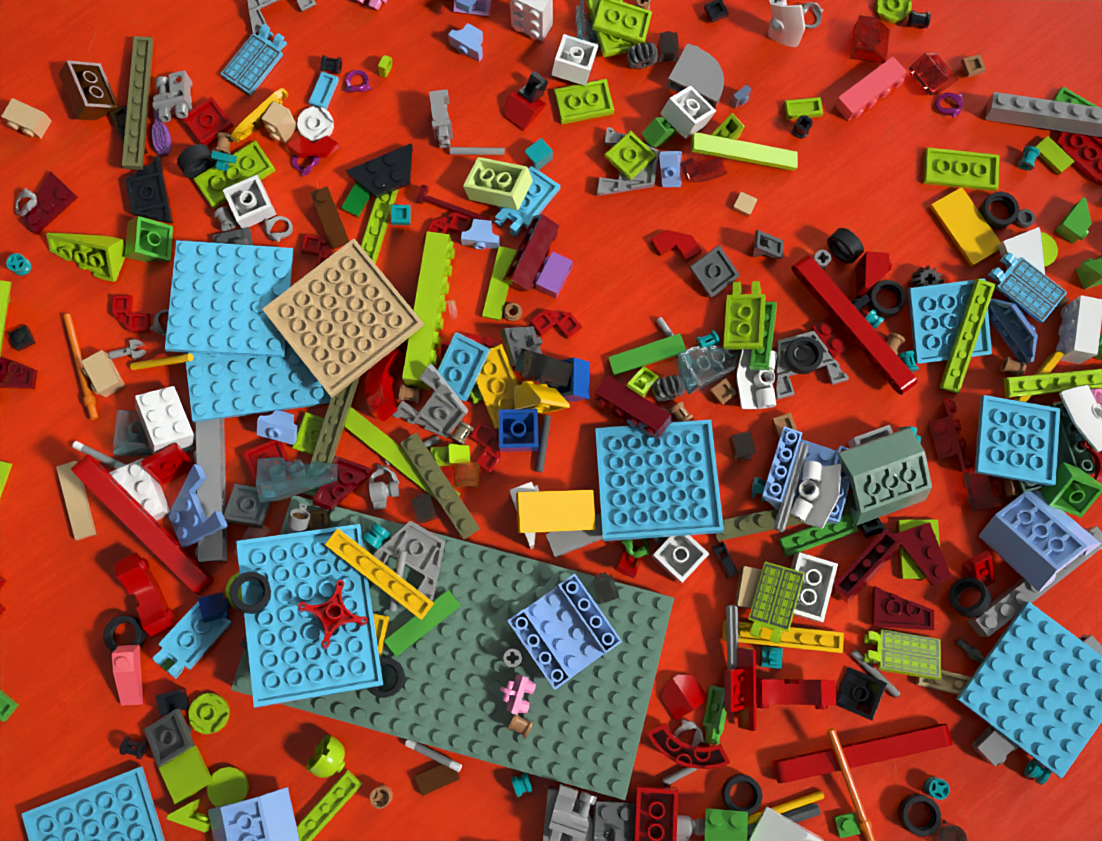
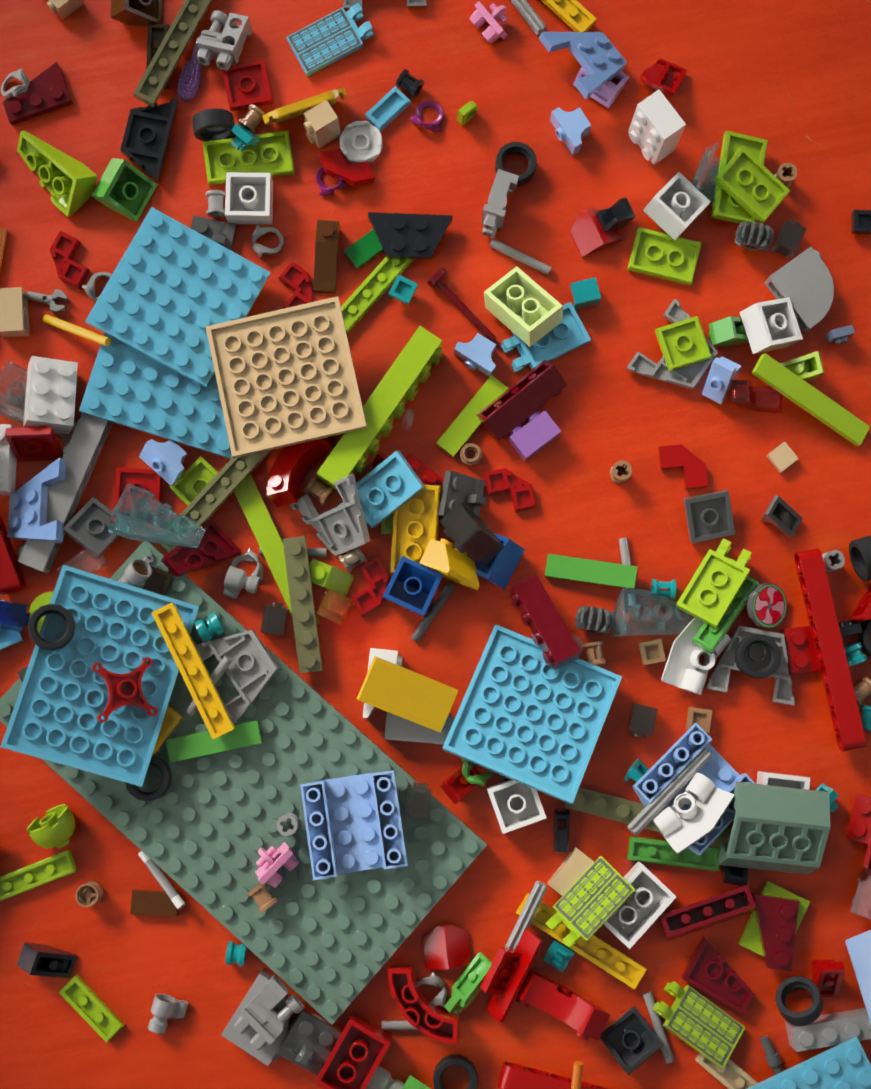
camera: 25 degrees right, 5 degrees up
(436, 73) = (523, 149): none -> black tyre
(454, 222) = (456, 324): red tile -> none
(637, 268) = (626, 474): none -> medium nougat bush
(642, 381) = (570, 599): lime slope -> none
(790, 315) = (767, 605): none -> tile

